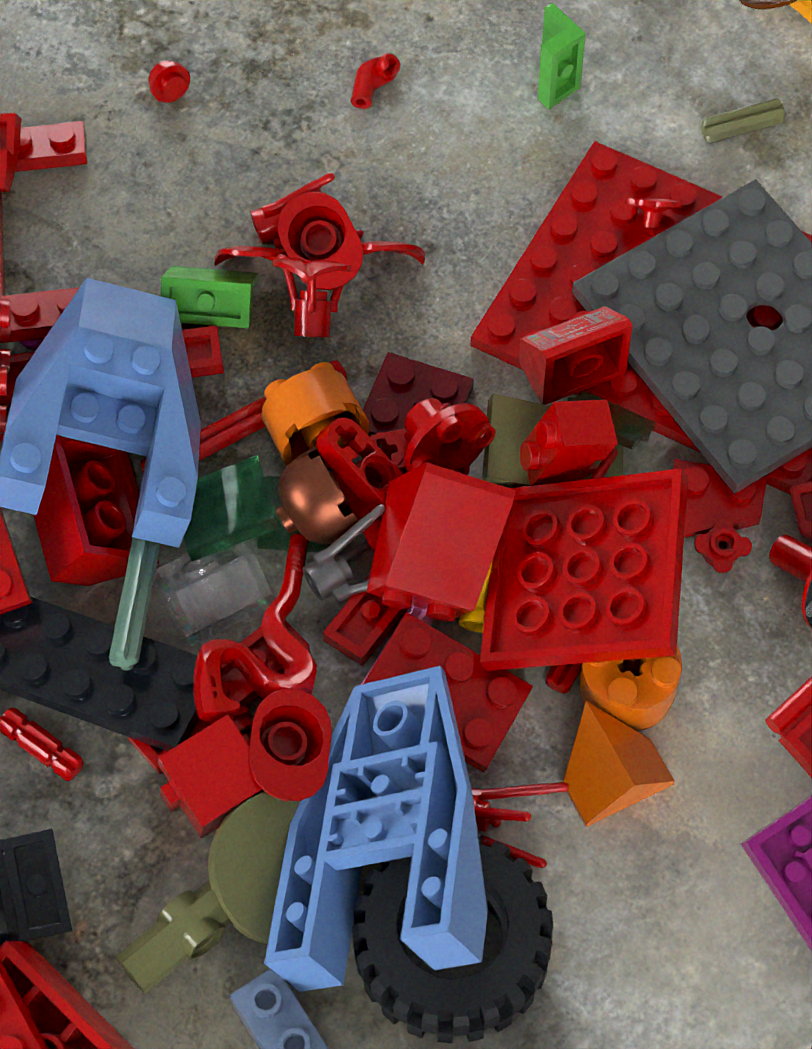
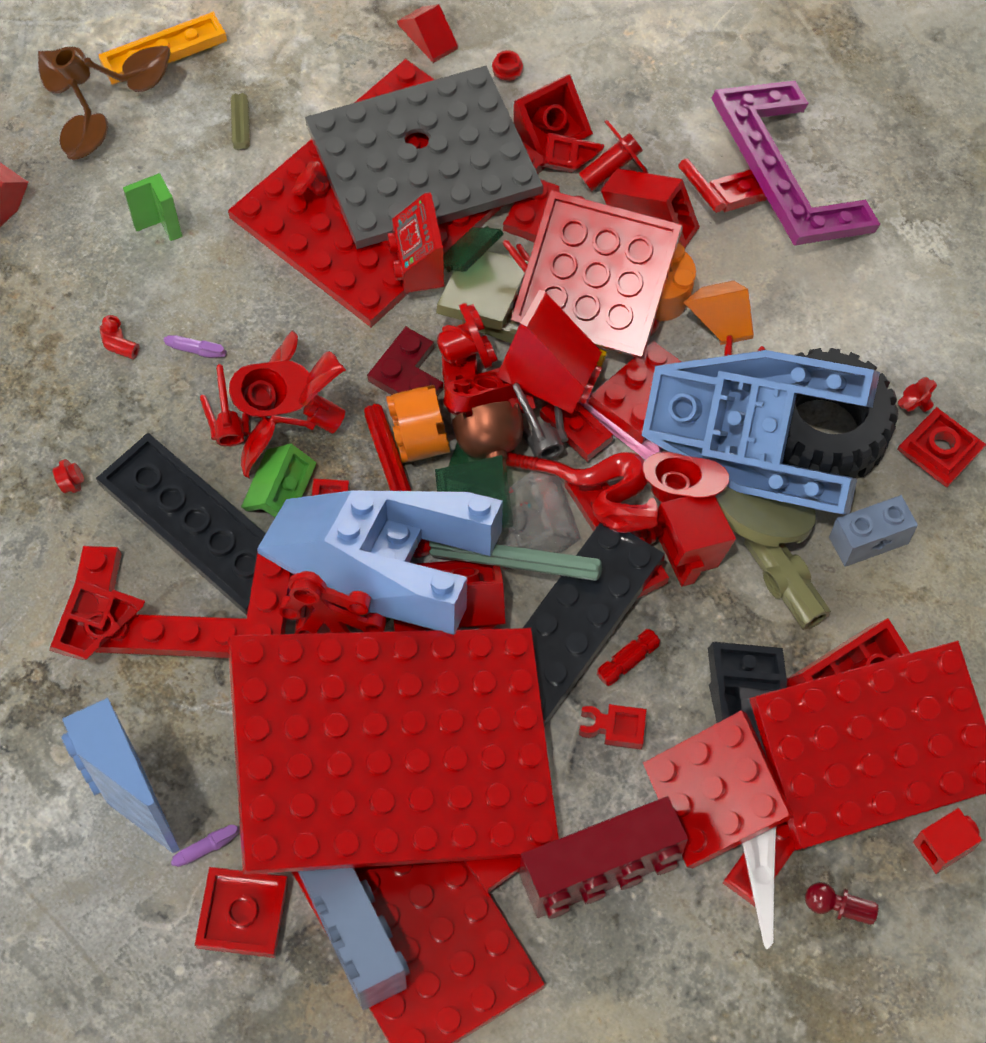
camera: 80 degrees left, 0 degrees up
(146, 205) = (187, 516): none -> black plate
(386, 162) = (202, 348): none -> medium lavender piece
(568, 442) = (500, 260): red brick -> none
(757, 641) = (653, 196): none -> red slope

